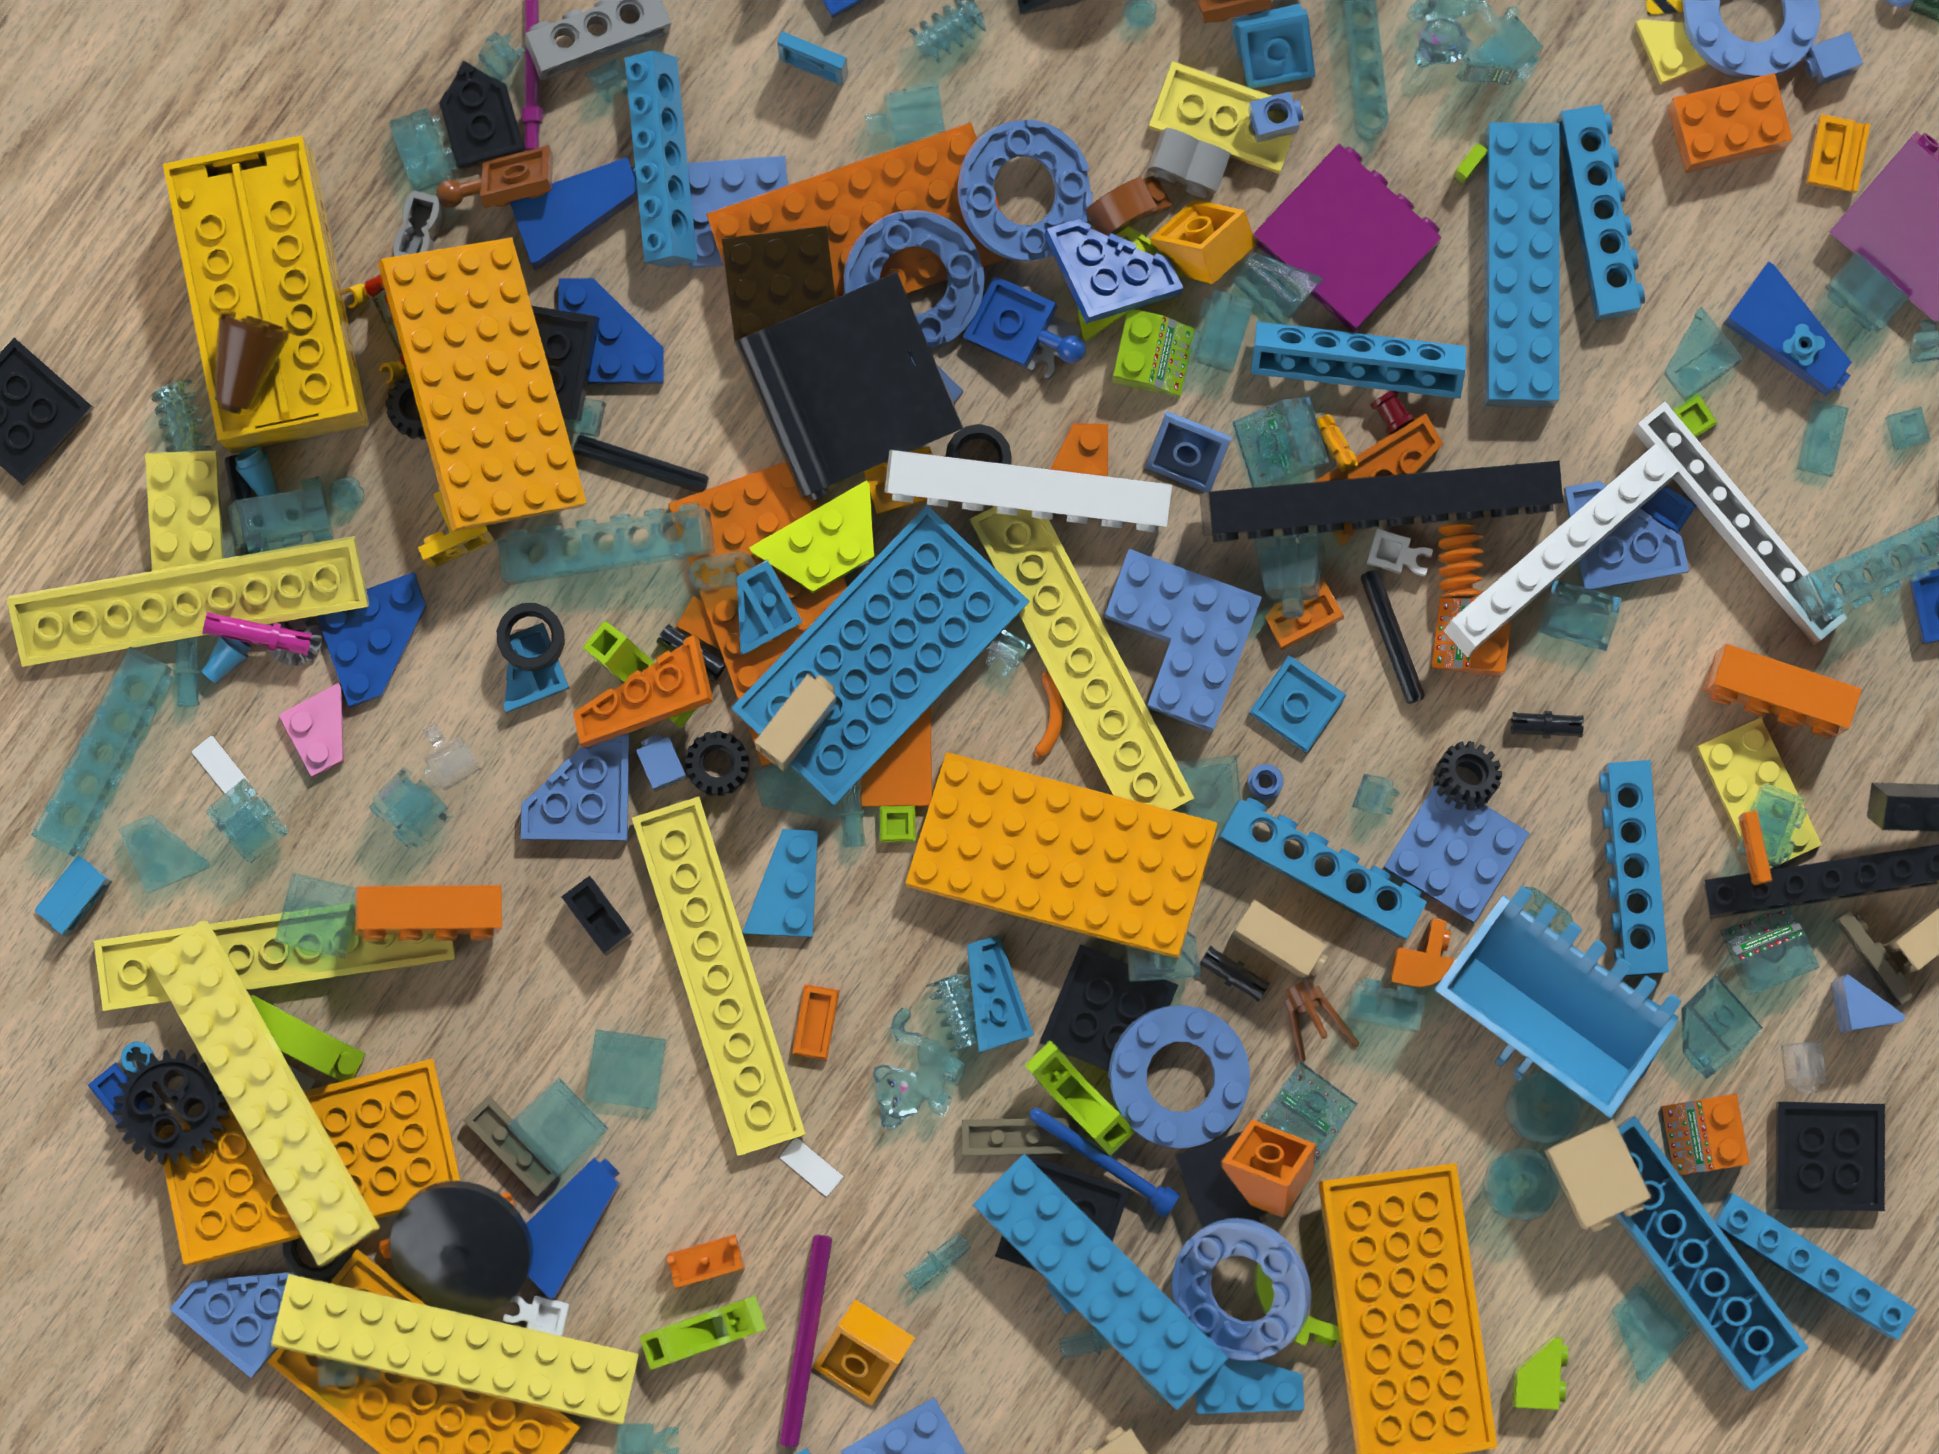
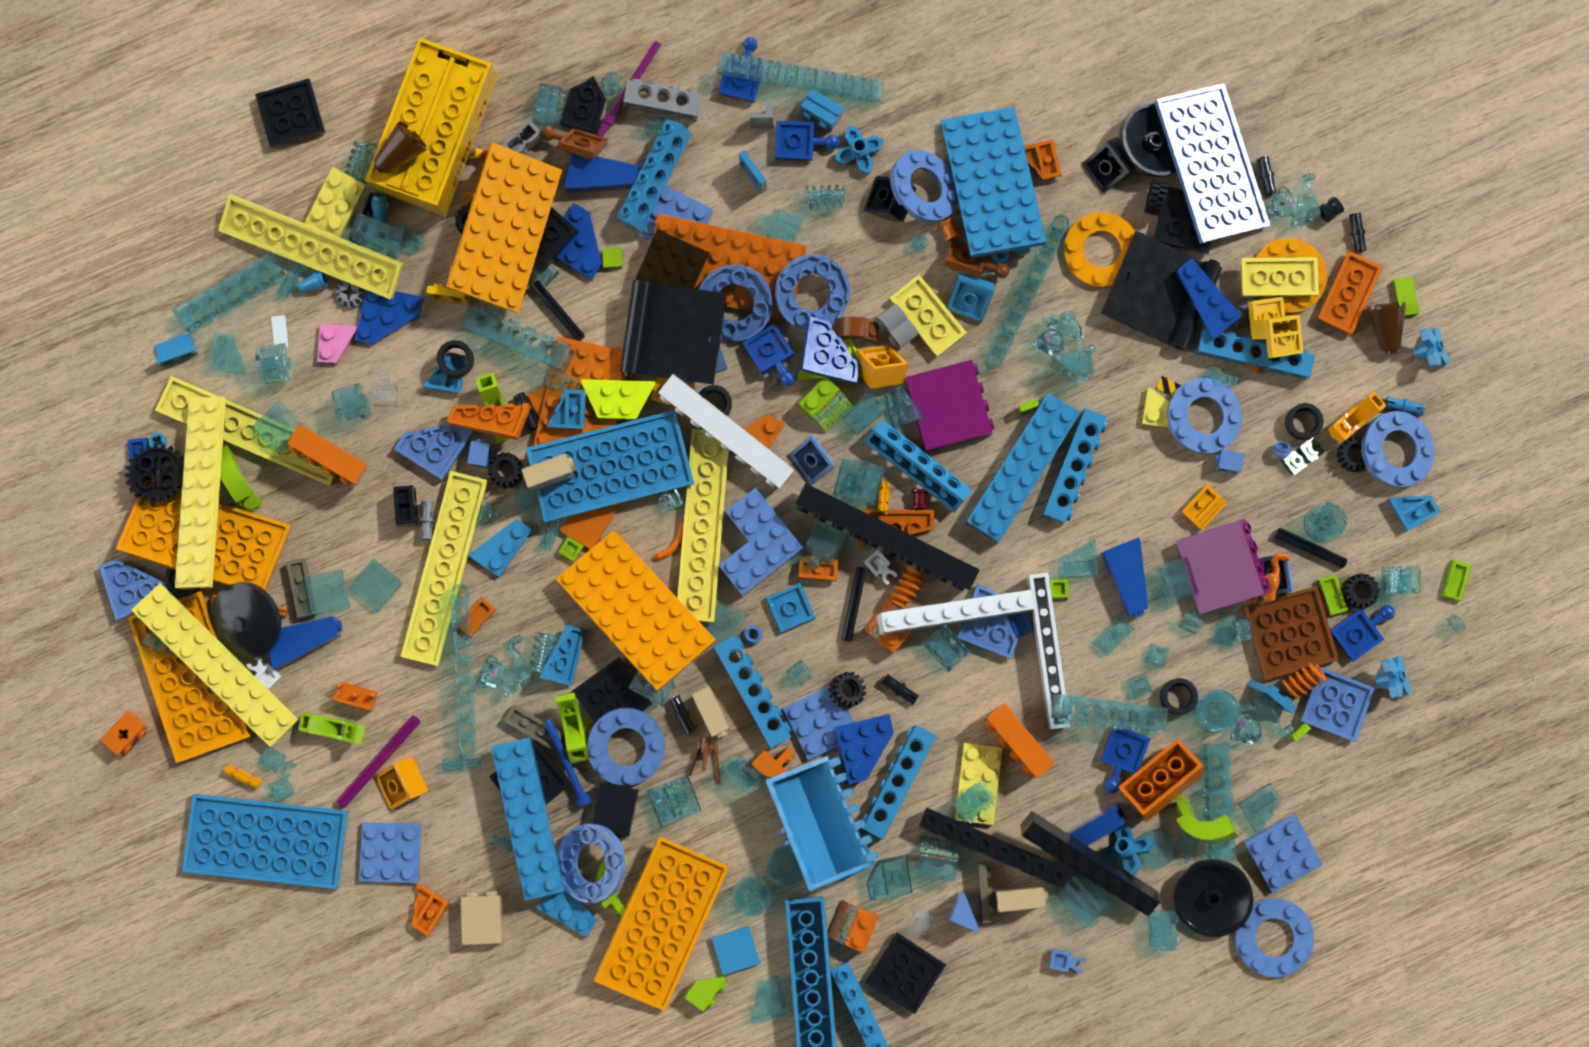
camera: 30 degrees right, 0 degrees up
(257, 633) = (337, 285): dark pink pin -> none
(643, 918) = (426, 520): none -> light grey pin
(674, 328) = (612, 258): none -> lime tile
(730, 848) = (486, 513): none -> clear light blue tile
(811, 1166) = (432, 682): white sticker -> none
(852, 1133) = (468, 678): none -> clear light blue beam
(1266, 129) = (941, 329): medium blue brick -> none
(1270, 1166) = (639, 814): orange slope -> none
(1544, 846) = (862, 745): none -> blue plate
(1547, 1286) = (735, 950): none -> dark azure tile
(1598, 1175) = (788, 914): tan brick -> none
(1729, 123) = (1161, 461): orange brick -> none
(1754, 847) = (957, 806): orange tile -> none
(1793, 345) = (1131, 581): dark azure plate -> none
(1909, 491) = (1139, 685): none -> clear light blue tile

